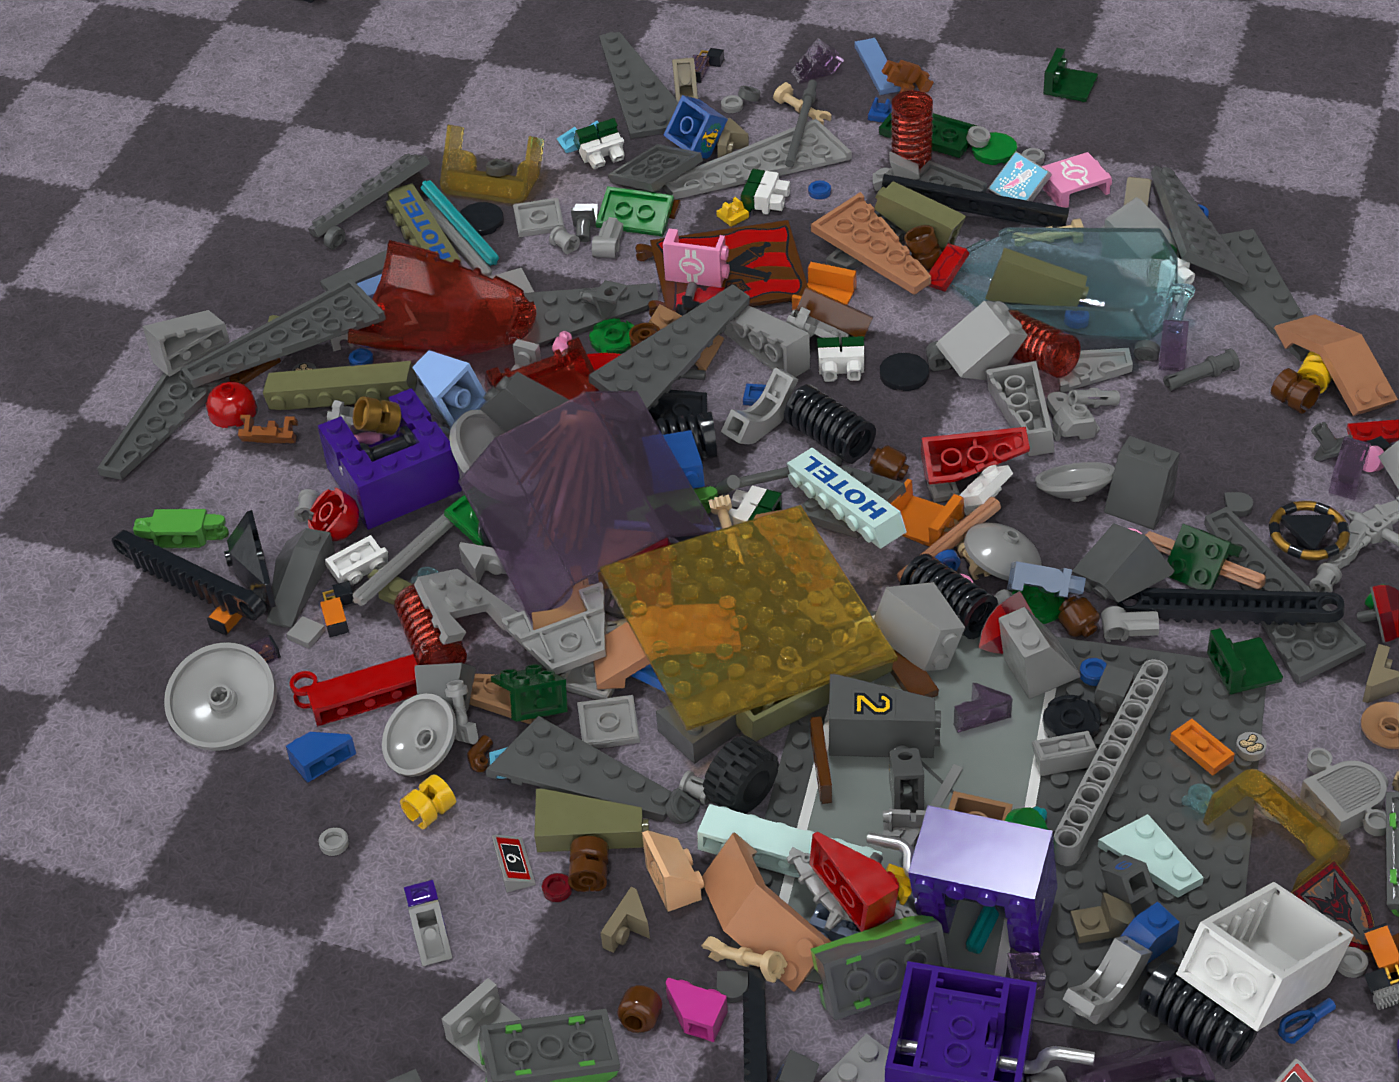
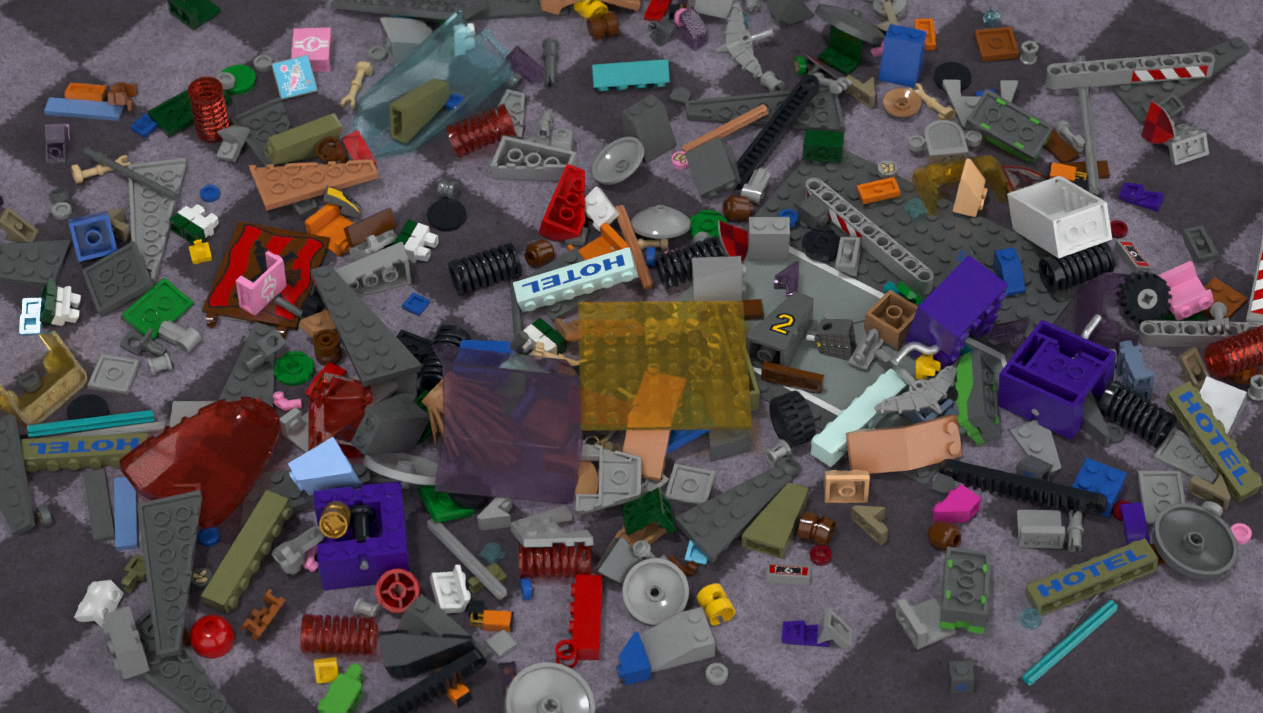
camera: 70 degrees left, 5 degrees up
(218, 502) = (326, 670): none -> yellow tile
(243, 315) = (100, 599): none -> white bracket
(258, 489) = (356, 646): none -> clear red piece
(365, 788) = (679, 640): none -> light grey slope
(385, 623) = (525, 589): none -> blue tile
(765, 414) = (443, 300): light grey arch -> none
(770, 962) = (915, 482): tan piece -> none
(855, 881) = (932, 377): red slope -> none
(861, 283) = (347, 203): none -> dark grey slope
(896, 51) = (86, 92): none -> orange plate
(982, 340) = (465, 153): light grey slope -> none
(986, 203) = (305, 107): black tile -> none
(1045, 579) = (707, 211): sand blue hips -> none
(1110, 982) = (1032, 298): light grey arch -> none
(1137, 188) = (348, 23): dark tan slope -> none
(1149, 844) = (937, 247): light aqua wing -> none
(1199, 557) = (726, 125): dark green bracket -> none
(1236, 442) = (630, 73): none -> teal slope
(1266, 842) = (970, 191): none -> light nougat slope
(1308, 530) = (729, 71): piece -> none
(1332, 1059) = (1118, 229): none -> dark red tile
(1363, 624) = (835, 86): none -> light grey hinge

